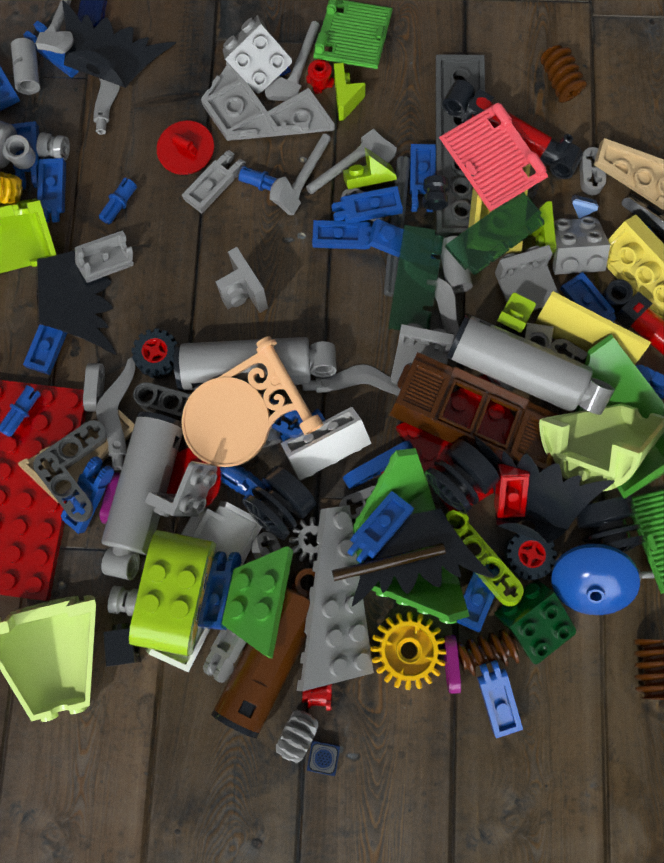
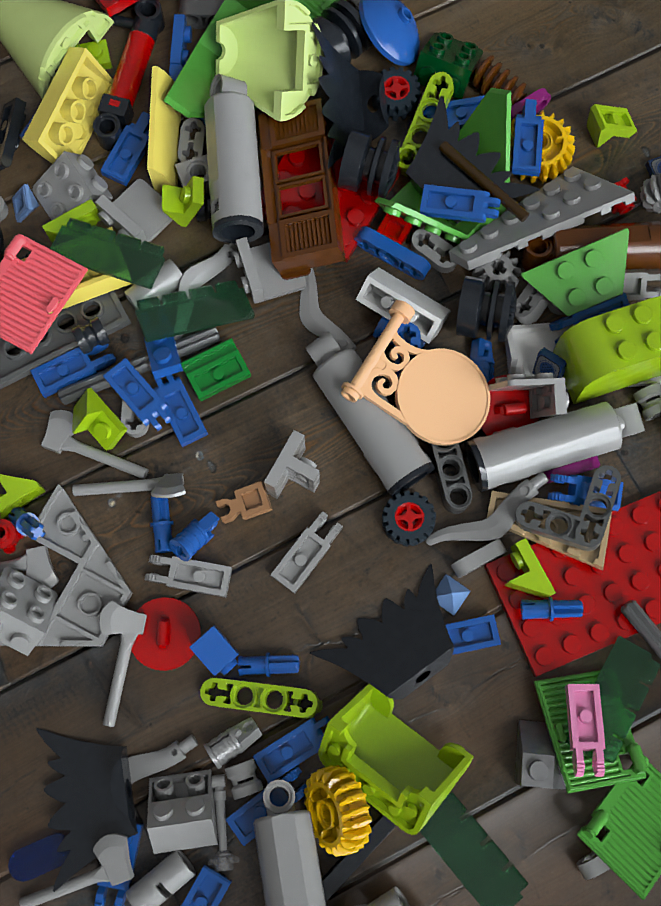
camera: 125 degrees left, 0 degrees up
(13, 110) = (223, 859): none -> light grey piece
(48, 408) = (534, 579): none -> lime slope
(60, 99) = (181, 812): none -> light grey slope
(74, 208) = (259, 700): none -> lime beam
(82, 151) = (232, 742): none -> light grey hinge
(83, 354) = (451, 594): none -> medium blue slope
(103, 256) = (342, 632): light grey hinge -> none
(144, 163) = (215, 651): none -> blue brick
(177, 265) = (305, 555): none -> light grey hinge
(201, 528) = (549, 363): none -> dark blue tile
(203, 123) = (127, 623): none -> light grey piece
(237, 194) = (193, 537): none -> blue hinge
(244, 242) = (249, 502): none -> medium nougat plate
(315, 88) = (26, 523): none -> blue axle
(359, 276) = (215, 369): none -> green plate
(393, 735) = (608, 122): none -> lime slope
(411, 633) = (527, 141): none -> blue hinge
(499, 700) = (532, 56): hinge -> none
(511, 492) = (351, 118): red slope -> none

